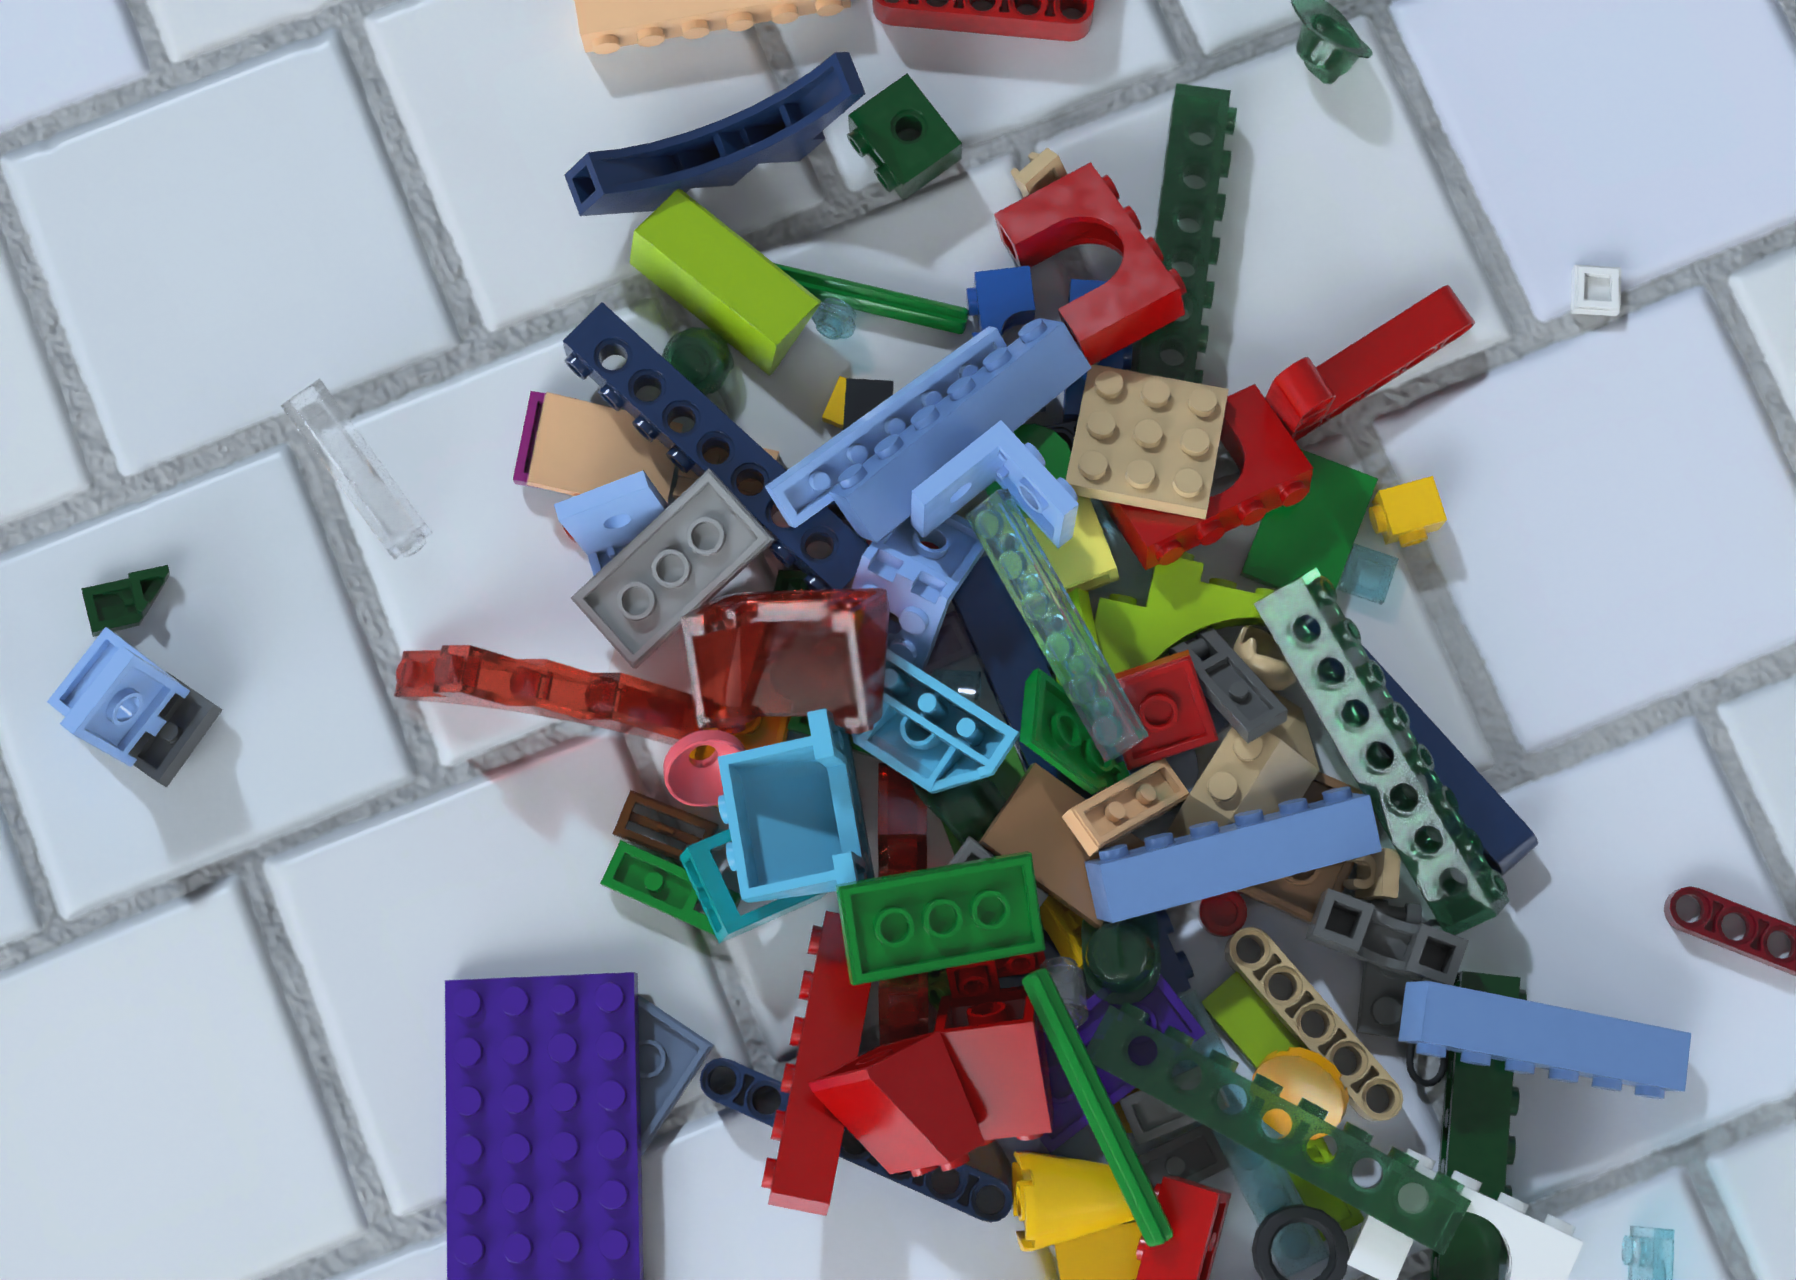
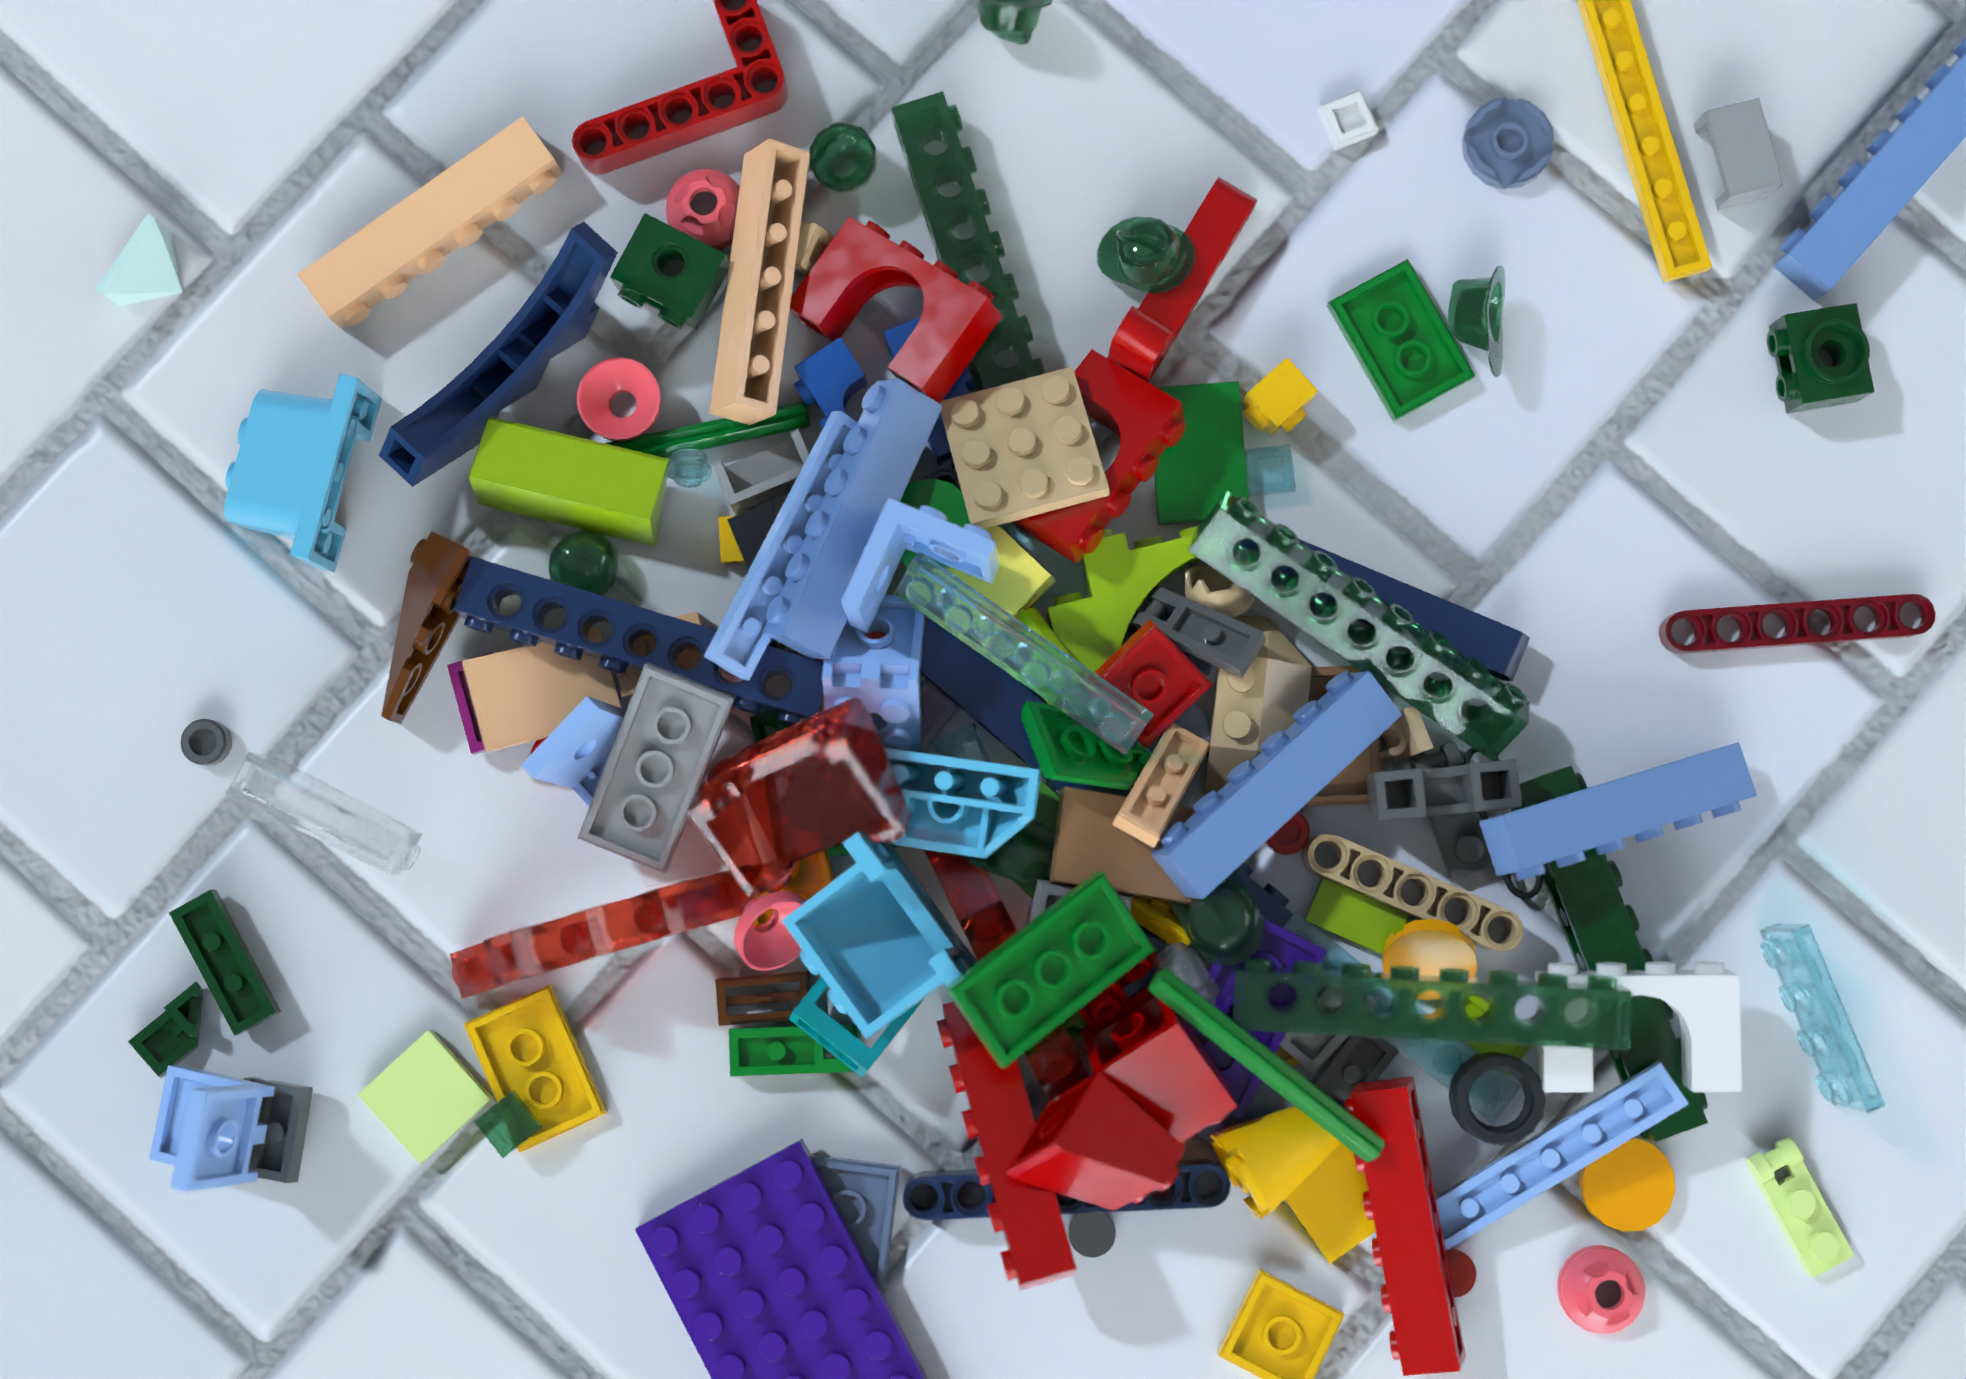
camera: 30 degrees left, 5 degrees up
(201, 560) = (225, 962): none -> dark green plate
(283, 358) = (206, 742): none -> dark grey tile
(317, 768) = (425, 1096): none -> yellowish green tile
(379, 827) = (508, 1123): none -> clear green tile
(428, 791) = (535, 1053): none -> yellow tile
(486, 152) = (296, 466): none -> medium azure windscreen
(531, 342) = (425, 619): none -> reddish brown wedge
(797, 208) = (603, 384): none -> coral piece
(860, 1193) = (1091, 1233): none -> dark grey tile
(898, 356) = (763, 474): none -> light grey panel
(972, 118) = (712, 229): none -> coral piece
(980, 183) = (759, 283): none -> light nougat brick
(1111, 108) = (843, 157): none -> clear green hair
(1347, 323) = (1146, 254): none -> clear green piece
(1548, 513) = (1400, 340): none -> green tile
(1633, 522) = (1477, 315): none -> clear green piece
(1737, 380) = (1508, 142): none -> sand blue tile

